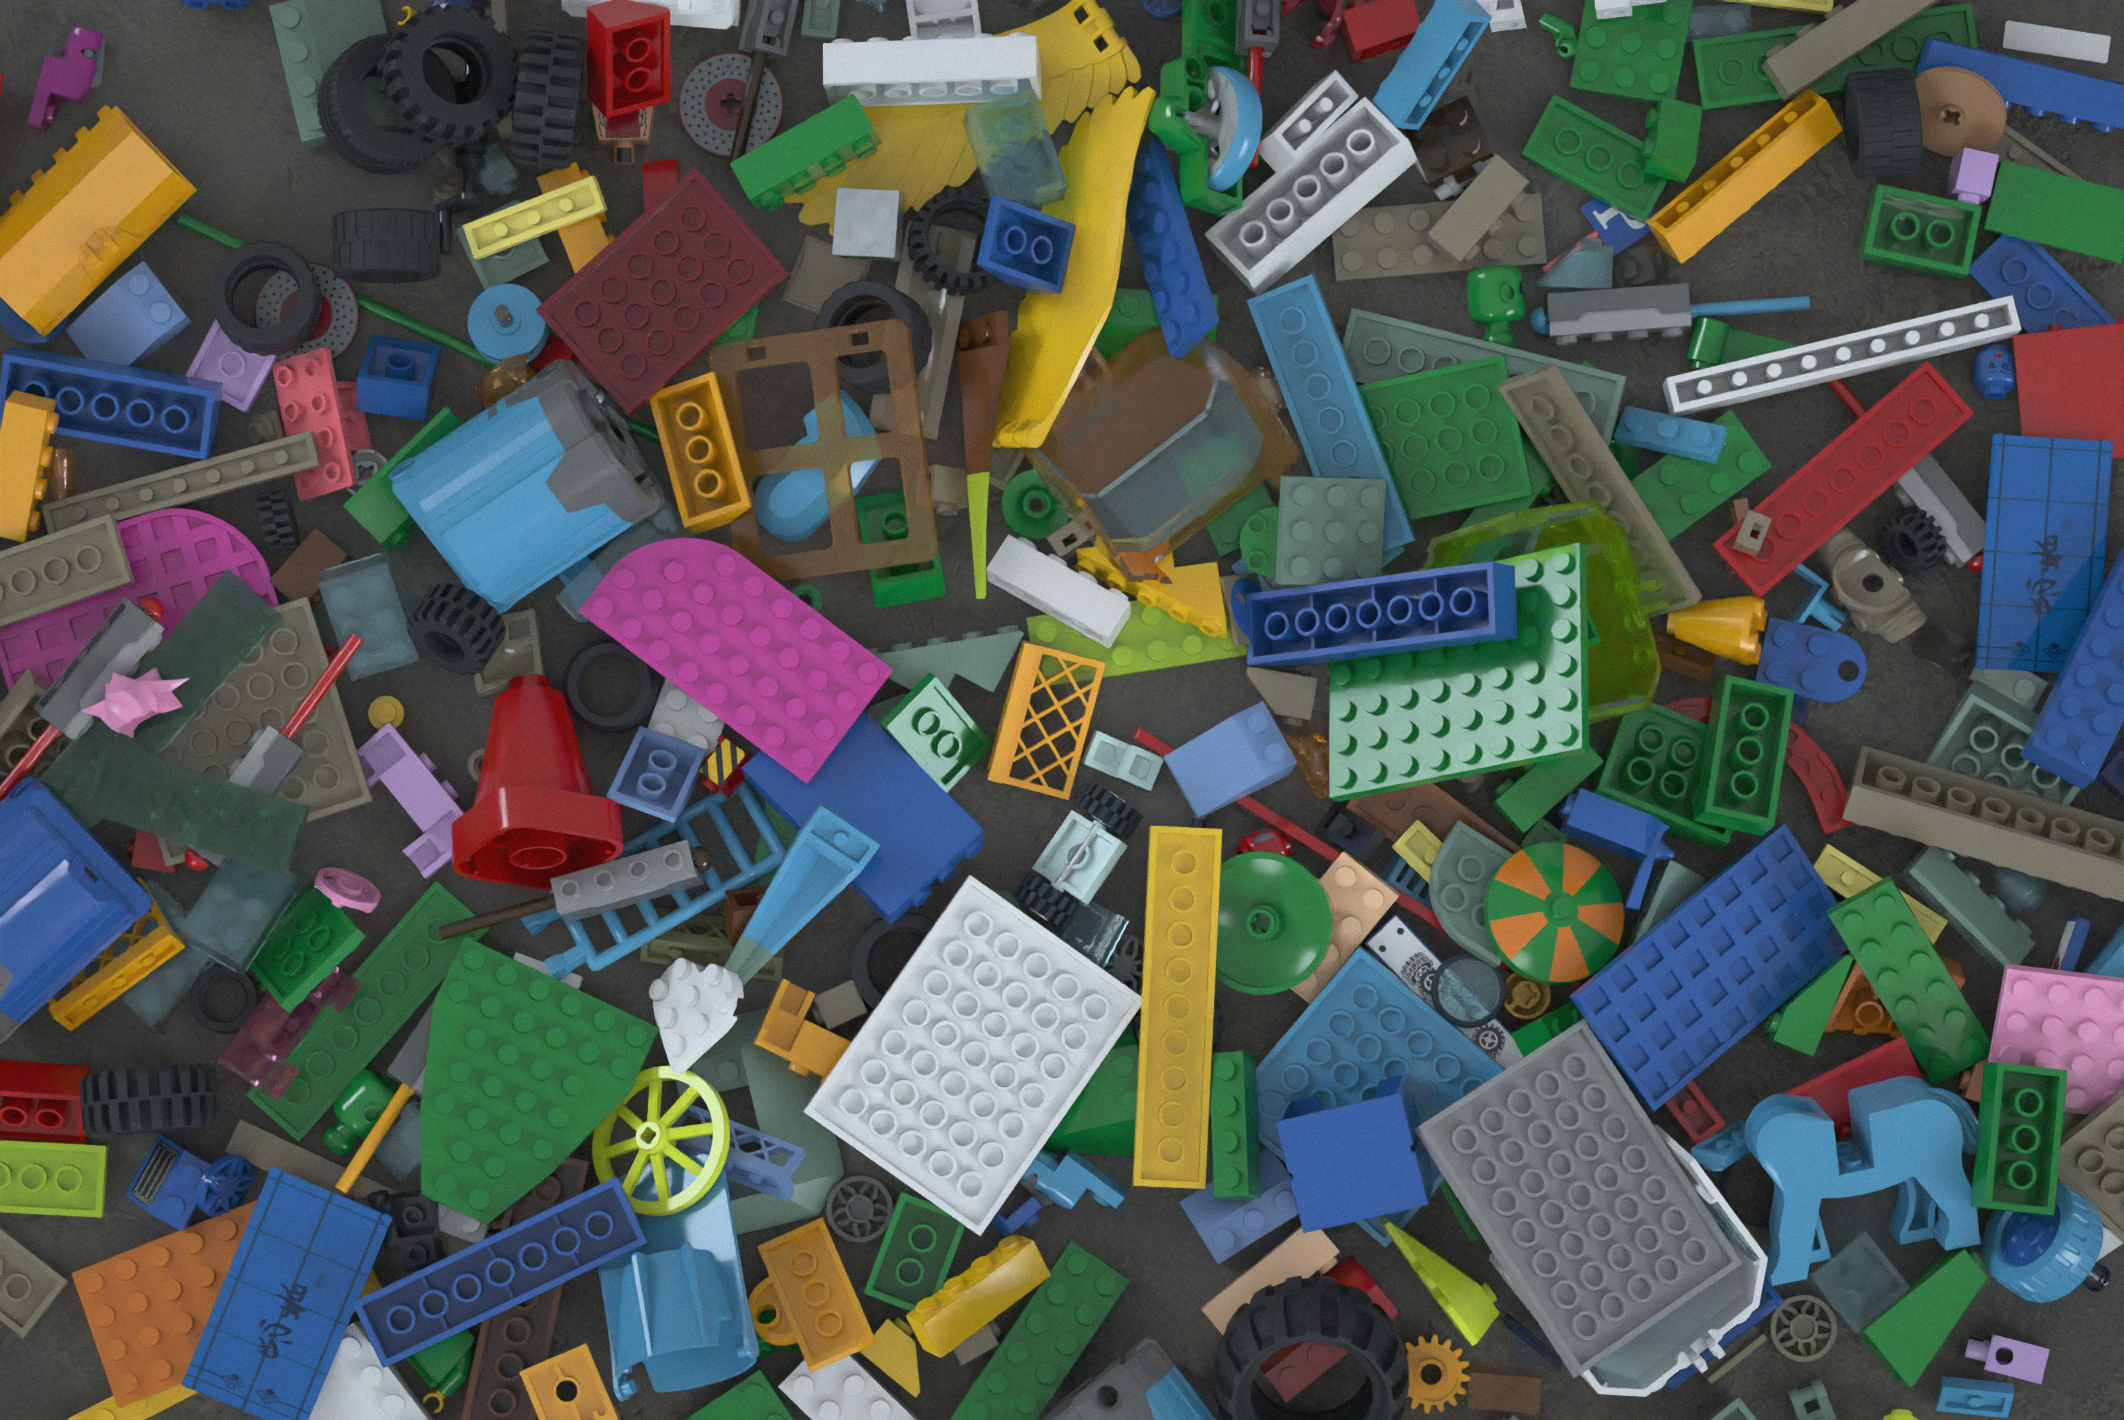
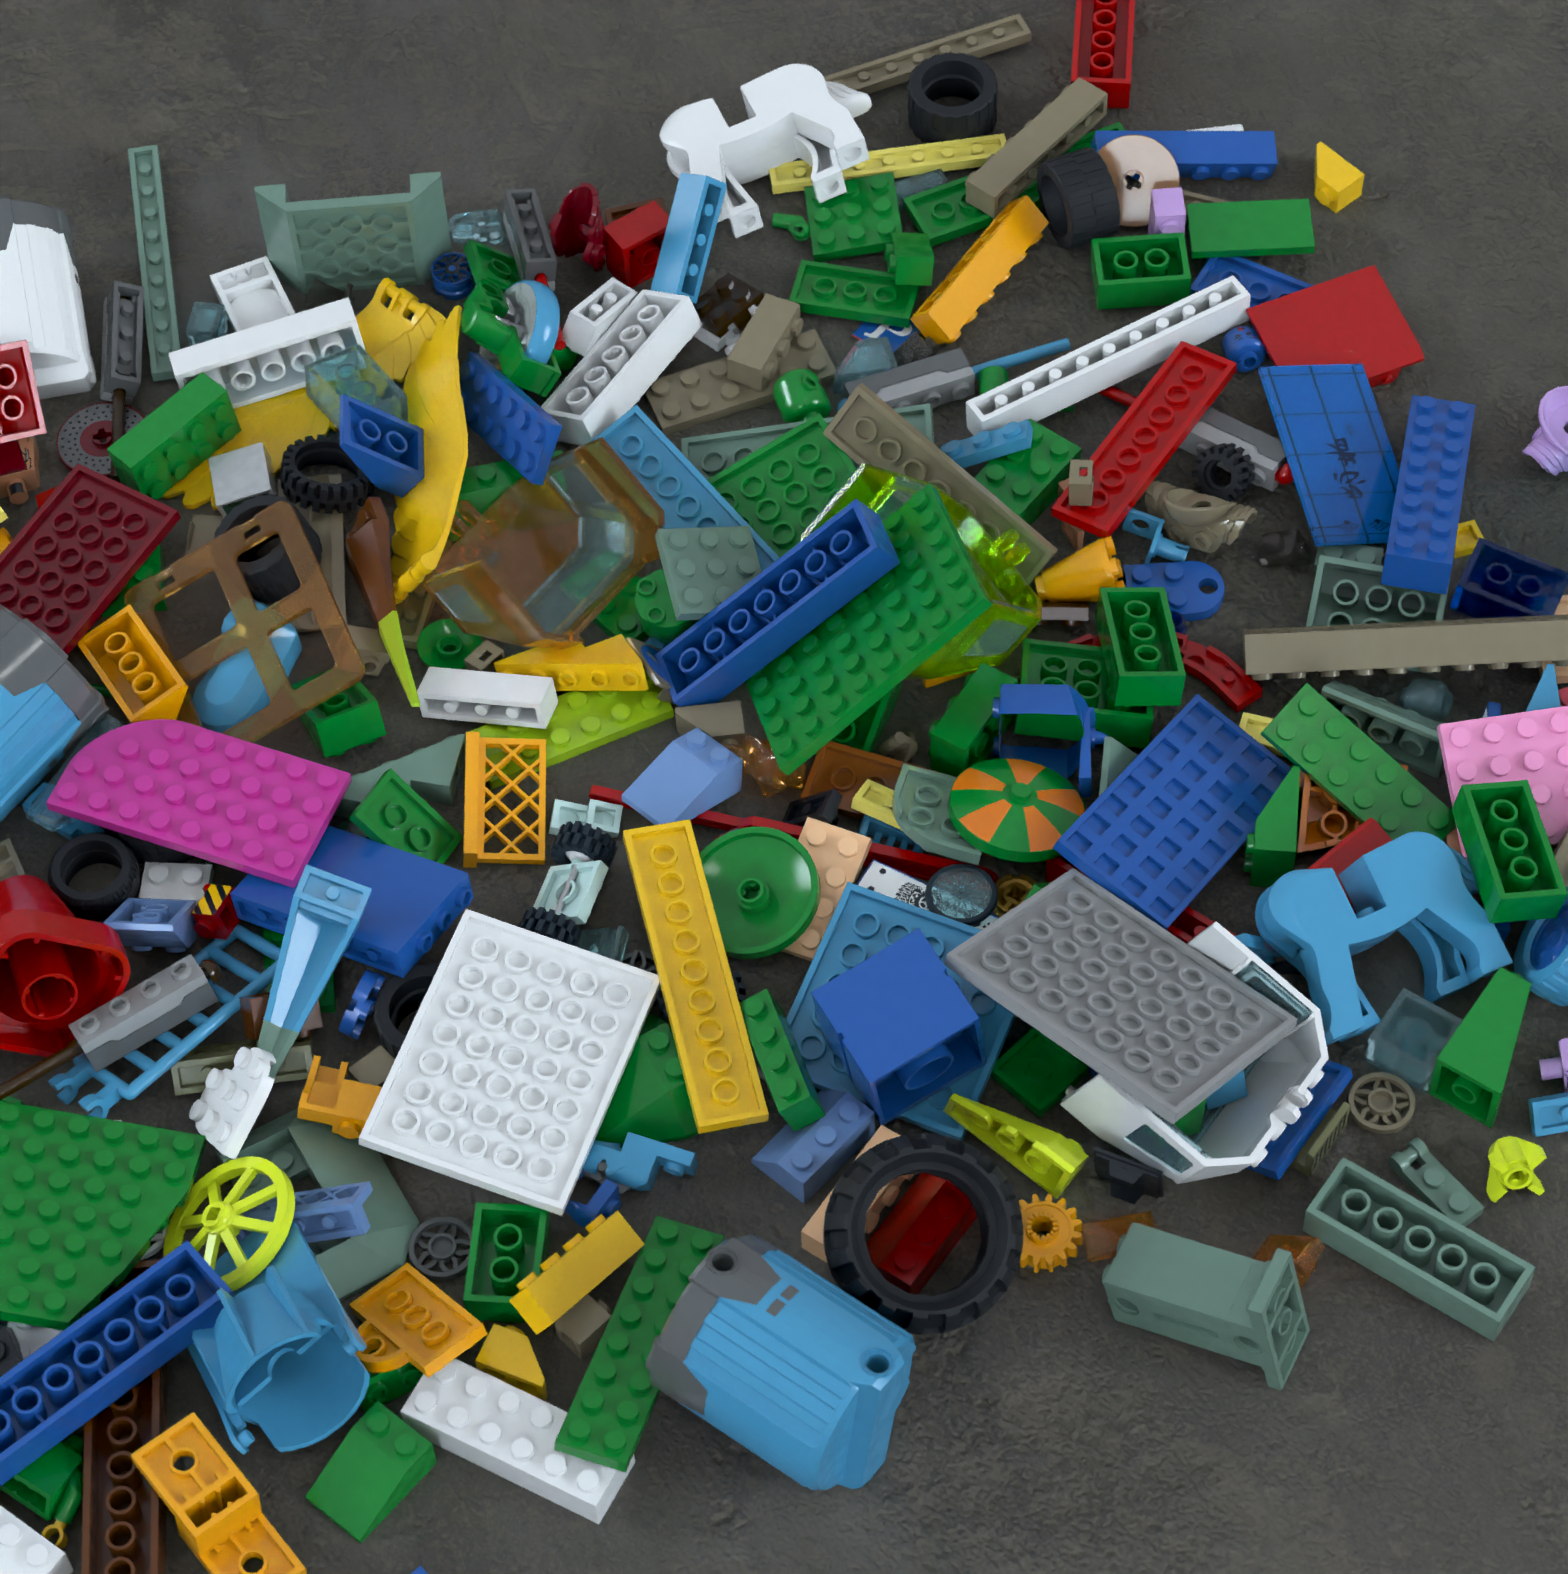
camera: 10 degrees left, 30 degrees down
(841, 926) = (361, 1004): none -> blue plate

